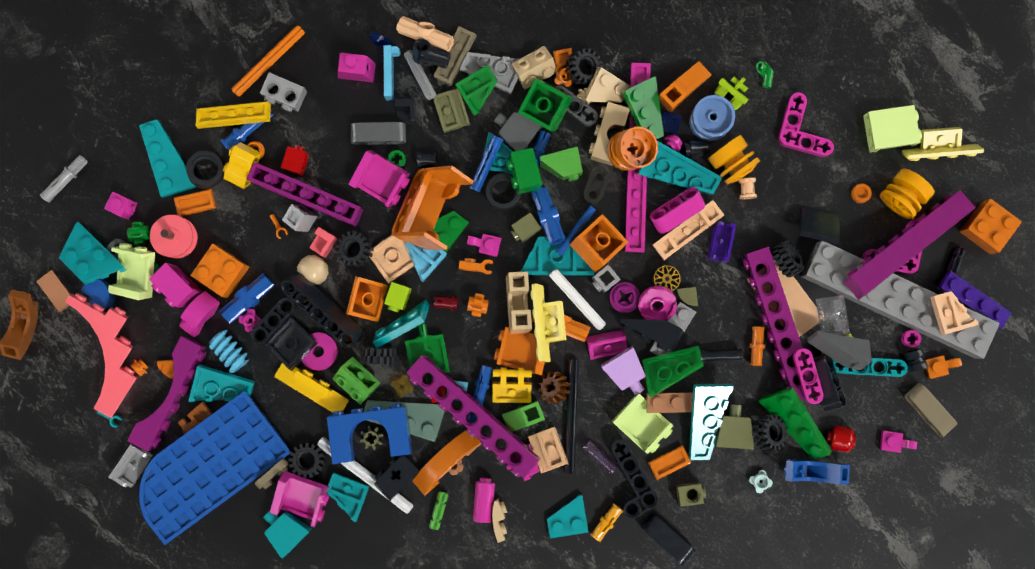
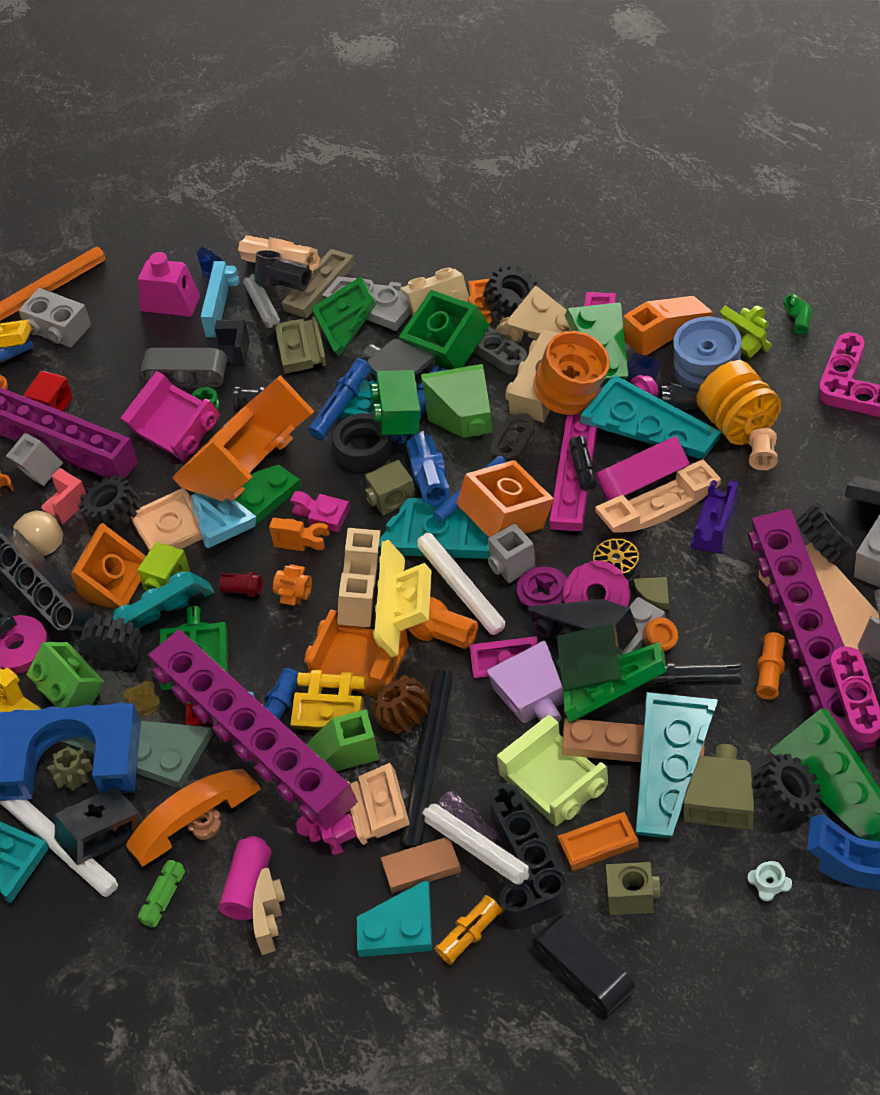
camera: 10 degrees right, 35 degrees down
(576, 483) = (420, 864): none -> nougat tile
(606, 476) = (476, 844): none -> white axle
(642, 209) = (582, 463): none -> black axle
(660, 361) = (589, 657): none -> clear green piece
(694, 328) = (661, 631): none -> orange tile

